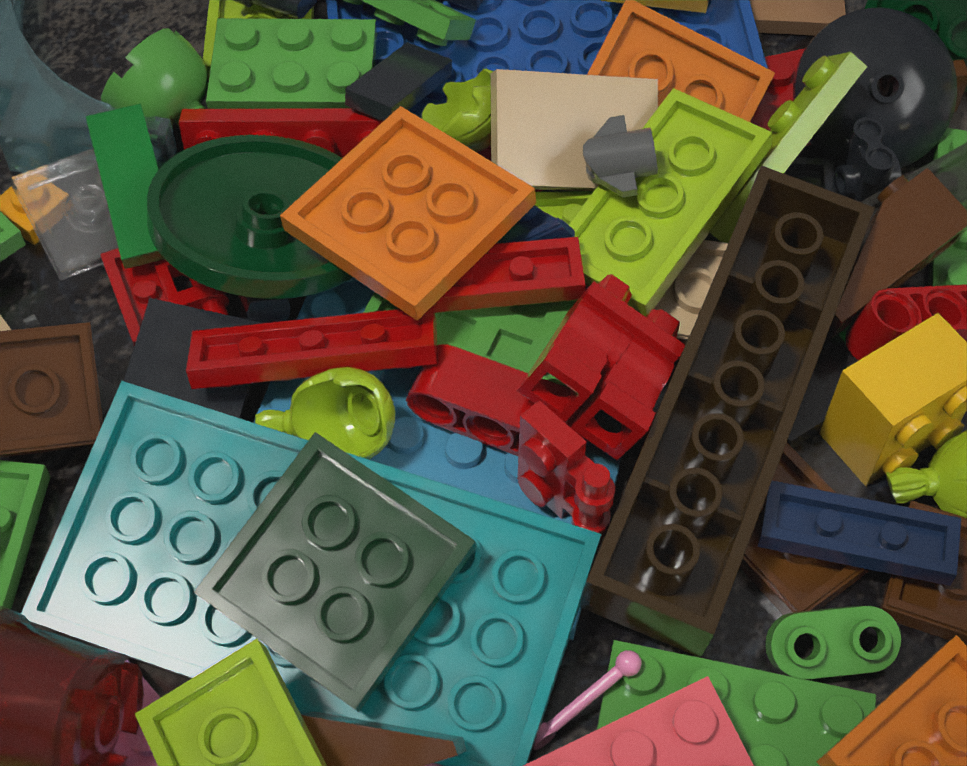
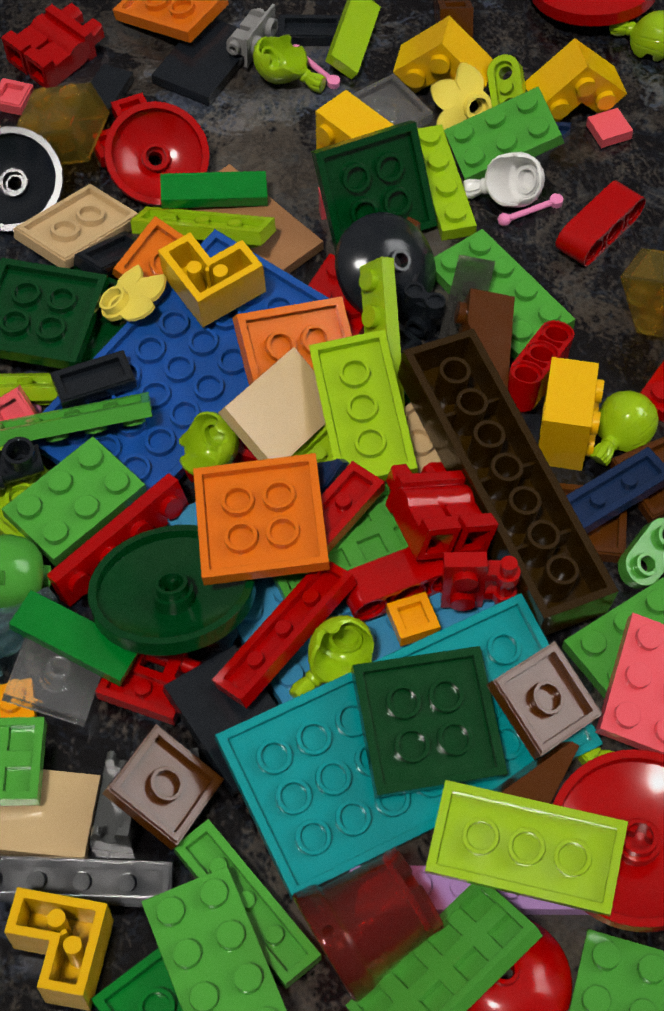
camera: 45 degrees left, 0 degrees up
(398, 81) = (152, 460): black tile -> none
(464, 456) = (412, 618): none -> light orange plate
(489, 671) = (544, 700): none -> tile
(620, 156) = (328, 403): dark grey piece -> none
(627, 664) = (586, 643): bright pink hinge -> none

